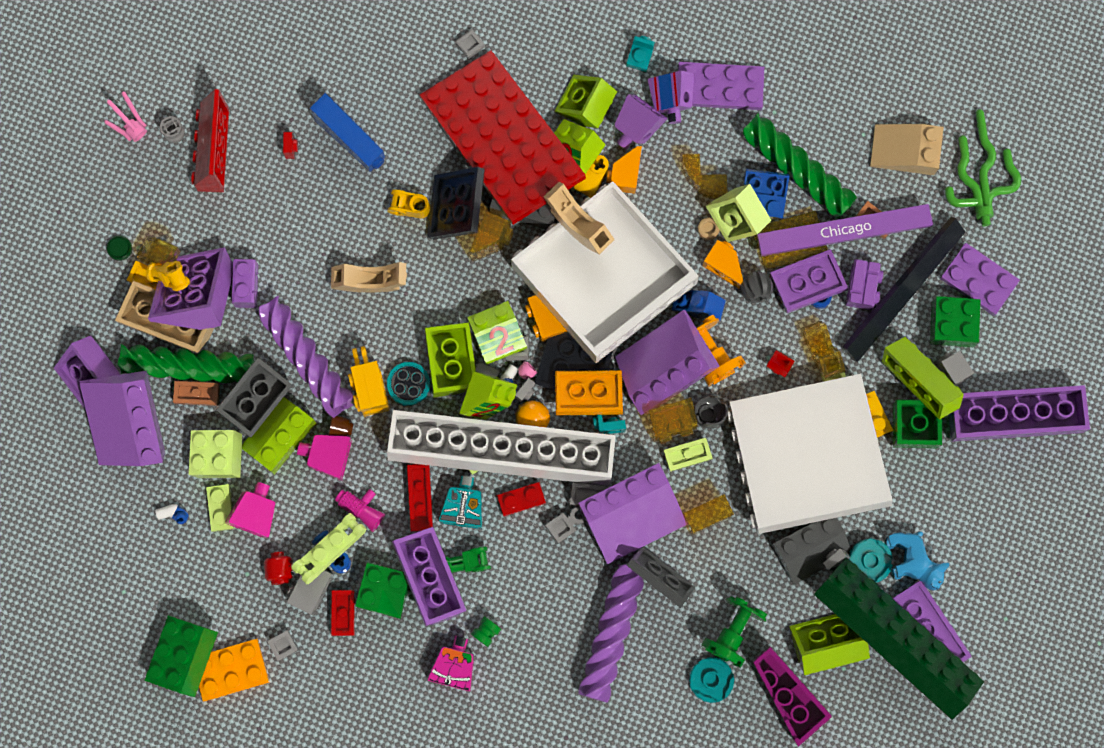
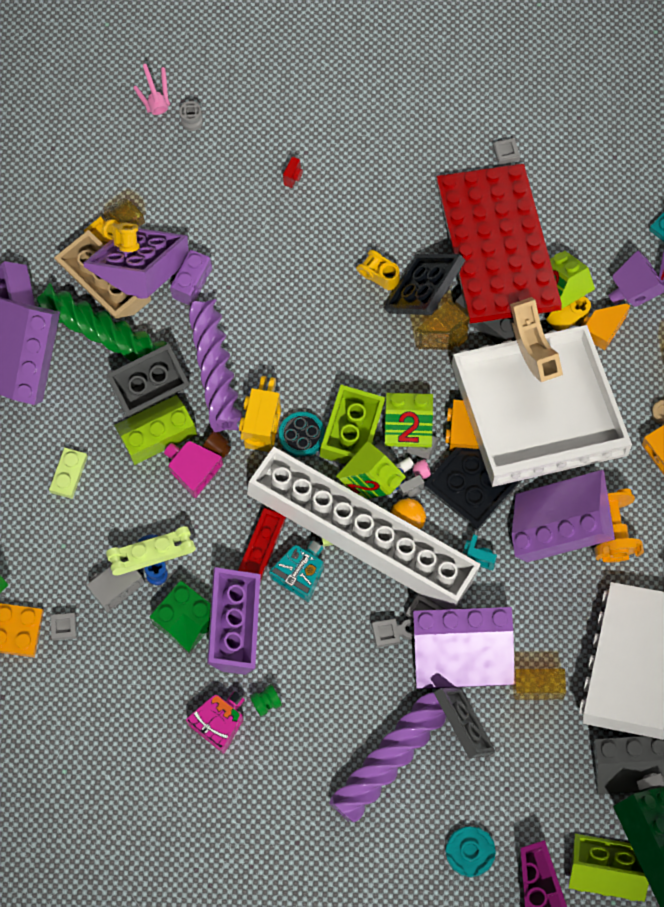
camera: 30 degrees right, 10 degrees down
(119, 248) = (91, 201): dark green piece -> none
(173, 511) = (23, 457): arm -> none
(196, 393) = (96, 357): nougat plate -> none
(211, 143) = (221, 141): red slope -> none
(215, 454) = (87, 419): yellowish green brick -> none
(253, 512) = (96, 487): dark pink torso -> none
(278, 568) = (93, 552): red head -> none
(343, 613) = (135, 621): red plate -> none
(347, 133) = (351, 181): blue slope -> none
(359, 508) = (199, 531): dark pink piece -> none
(368, 279) = (307, 321): tan arch -> none
(469, 561) = (281, 626): green connector -> none
(521, 499) = (360, 590): red plate -> none
(586, 100) = (596, 244): lime slope -> none
(589, 392) = (473, 513): light orange tile -> none
(672, 420) = (544, 575): clear yellow slope -> none
(687, 454) = (545, 617): yellowish green plate -> none
(700, 304) = (624, 475): blue slope -> none
(710, 412) = (586, 585): dark grey hair -> none
(730, 638) = (507, 815): green piece -> none

